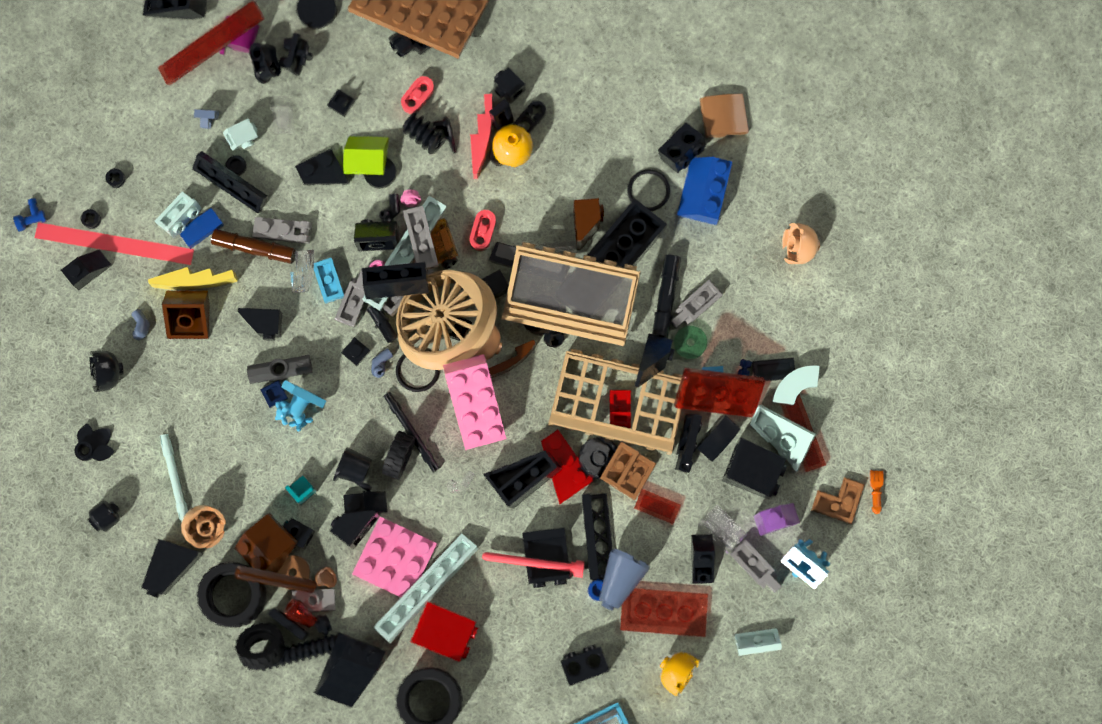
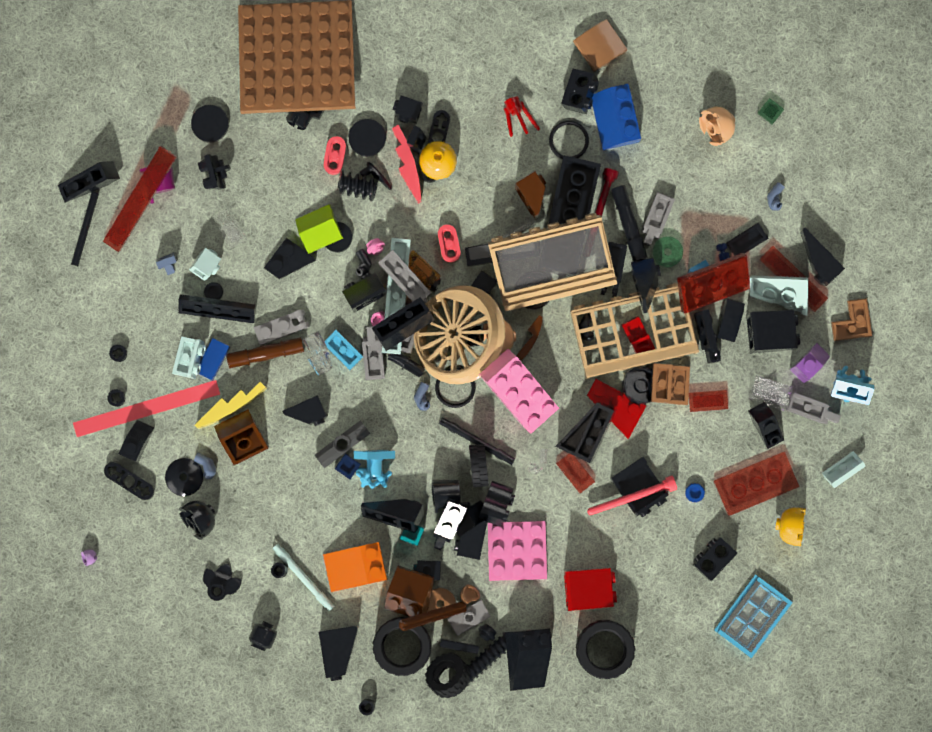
camera: 25 degrees left, 5 degrees up
(36, 216) = (69, 418): blue piece -> none
(51, 301) = (138, 493): none -> black beam
(120, 333) = (193, 481): none -> black dish
(148, 48) = (84, 229): none -> black bar
(150, 463) = (275, 573): none -> black hinge
(167, 632) = (362, 707): none -> black hinge
(203, 526) = (349, 603): light nougat cylinder -> none
(231, 494) = (355, 567): none -> orange slope
(264, 60) = (192, 191): black piece -> none
(295, 461) = (397, 513): none -> black slope
(299, 613) = (463, 633): clear red cone -> none
(341, 103) = (273, 194): black tile -> none
(341, 496) = (448, 522): none -> hinge
(355, 351) = (396, 398): black plate -> none
(397, 501) = (496, 503): none -> black brick
(425, 588) = (555, 561): light aqua plate -> none
(457, 93) = (367, 137): none -> black tile
(491, 511) = (575, 473): none -> clear red tile
(553, 338) = (554, 306): black plate -> none
(576, 369) = (584, 323): none -> black arm
(589, 533) = (666, 452): black fence -> none
(612, 134) = (515, 107): none -> red plant
(621, 578) = (709, 474): sand blue cone -> none
(639, 321) = (617, 254): none -> black hinge
(670, 242) = (609, 176): none -> dark red piece
(794, 383) = (770, 244): light aqua tile -> none
(820, 340) = (773, 197): none -> sand blue arm
(837, 427) = (821, 260): none -> black slope
(858, 257) = (770, 111): none -> clear green tile
(876, 483) = (875, 291): orange piece -> none

